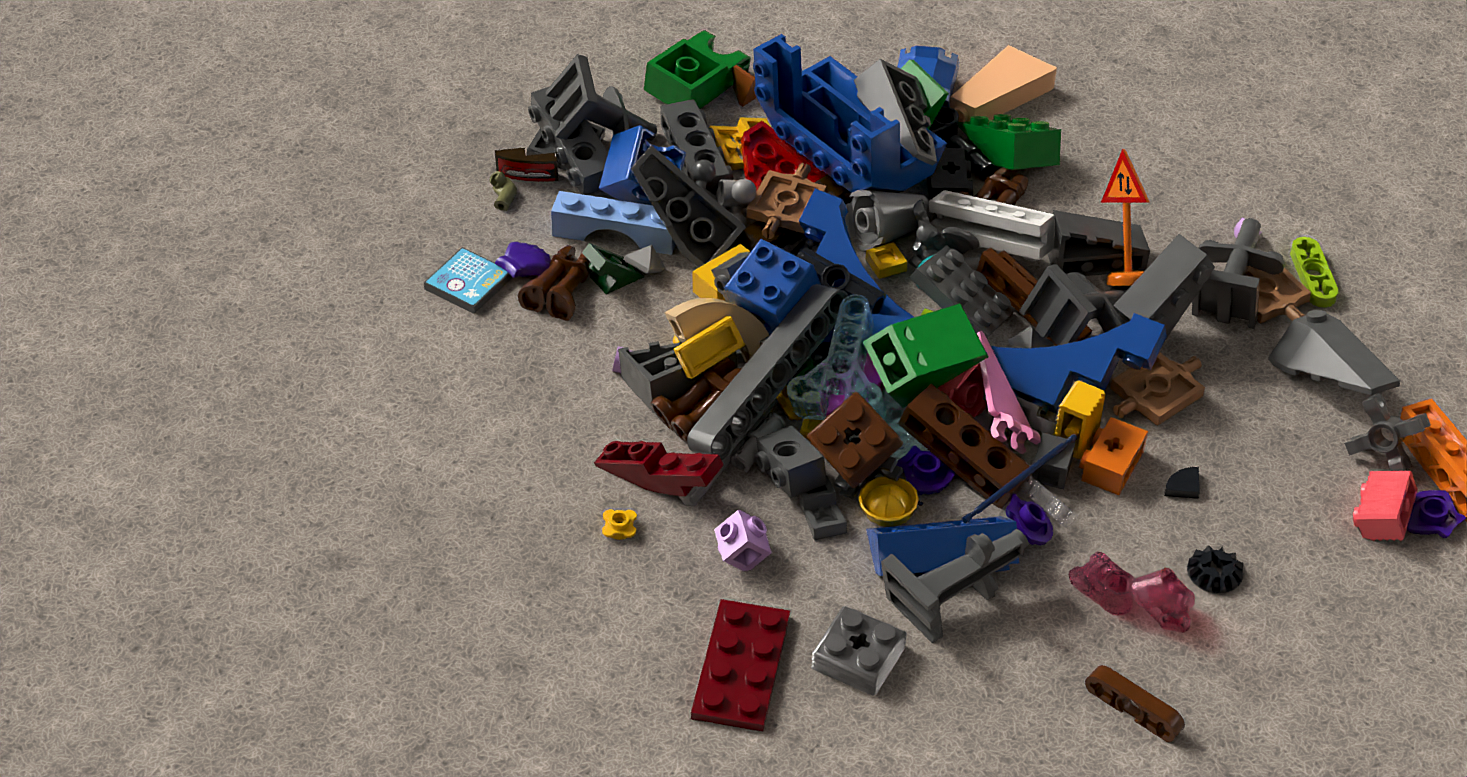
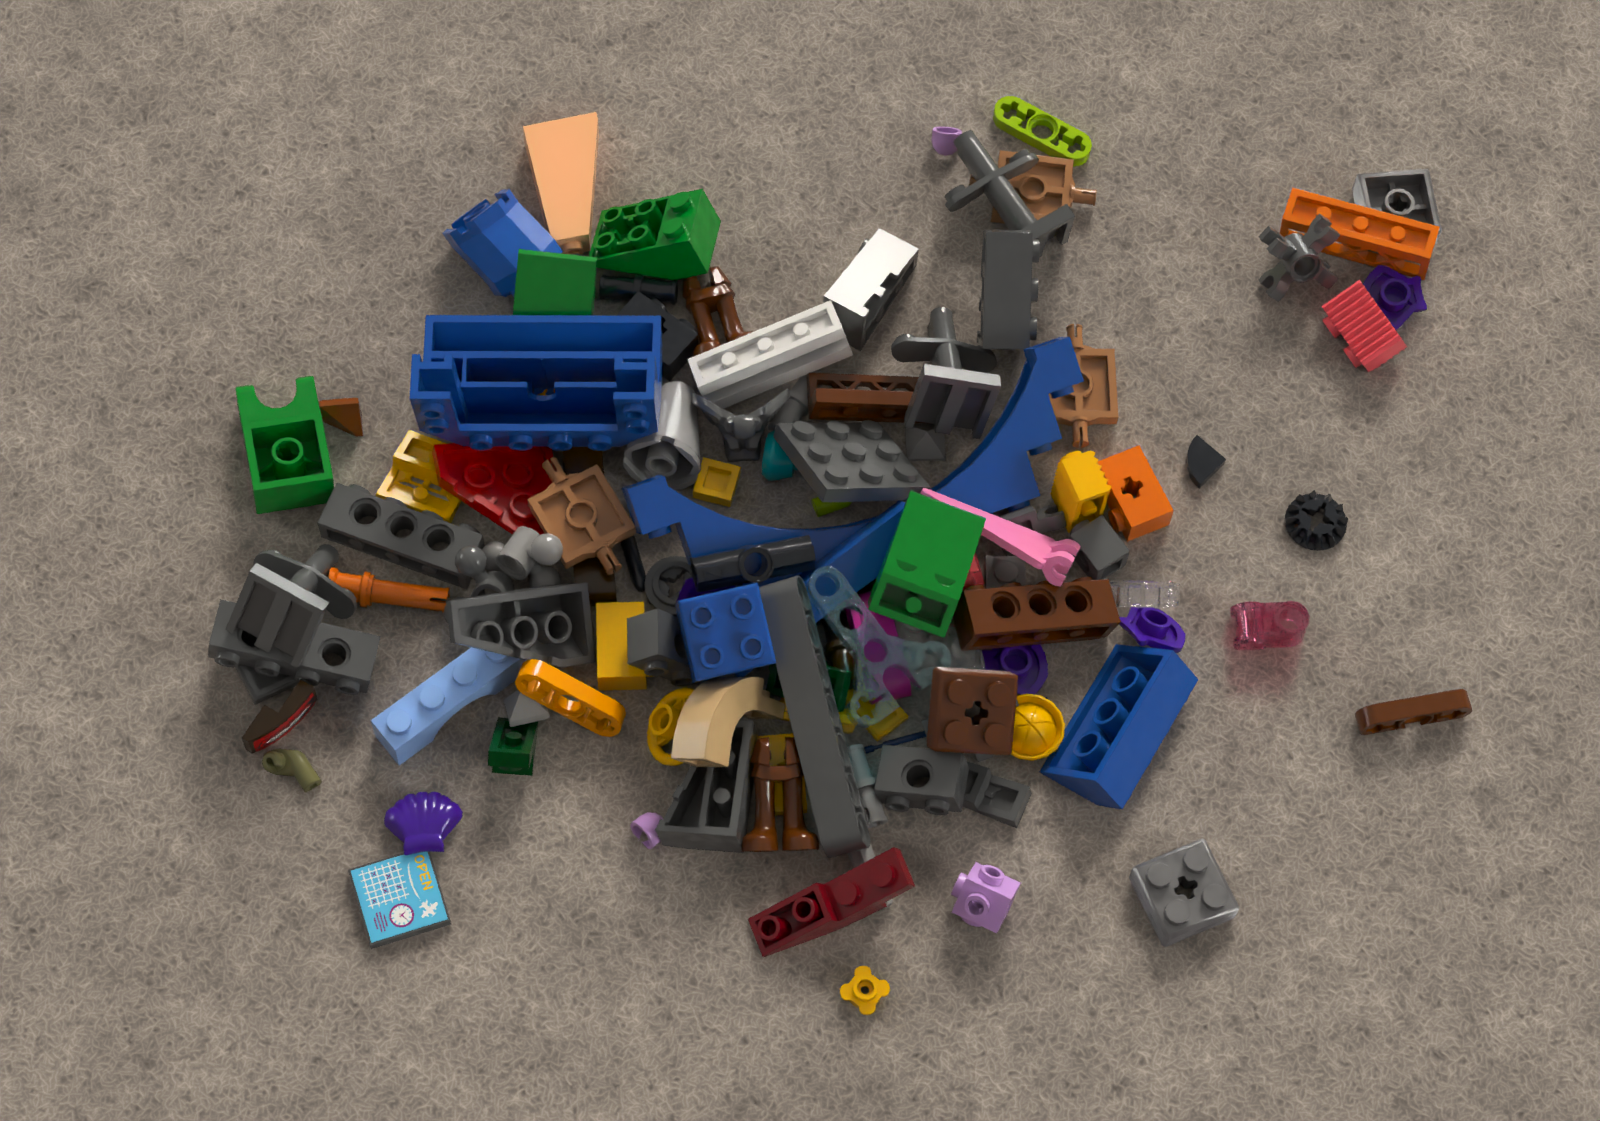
camera: 55 degrees left, 20 degrees up
(559, 298) = (488, 843): reddish brown piece -> none
(622, 155) = (413, 620): blue piece -> none
(666, 267) = (548, 685): none -> light orange beam
(709, 347) = (746, 750): yellow tile -> none
(741, 665) = (1118, 1006): dark red plate -> none
(901, 99) = (570, 321): dark grey wedge -> none
(922, 596) = (1182, 788): dark grey piece -> none
(1019, 478) = (1112, 601): dark blue piece -> none
(1126, 189) = (874, 216): orange piece -> none
(1165, 599) = (1331, 596): clear pink piece -> none
(1331, 352) = (1167, 217): dark grey wedge -> none

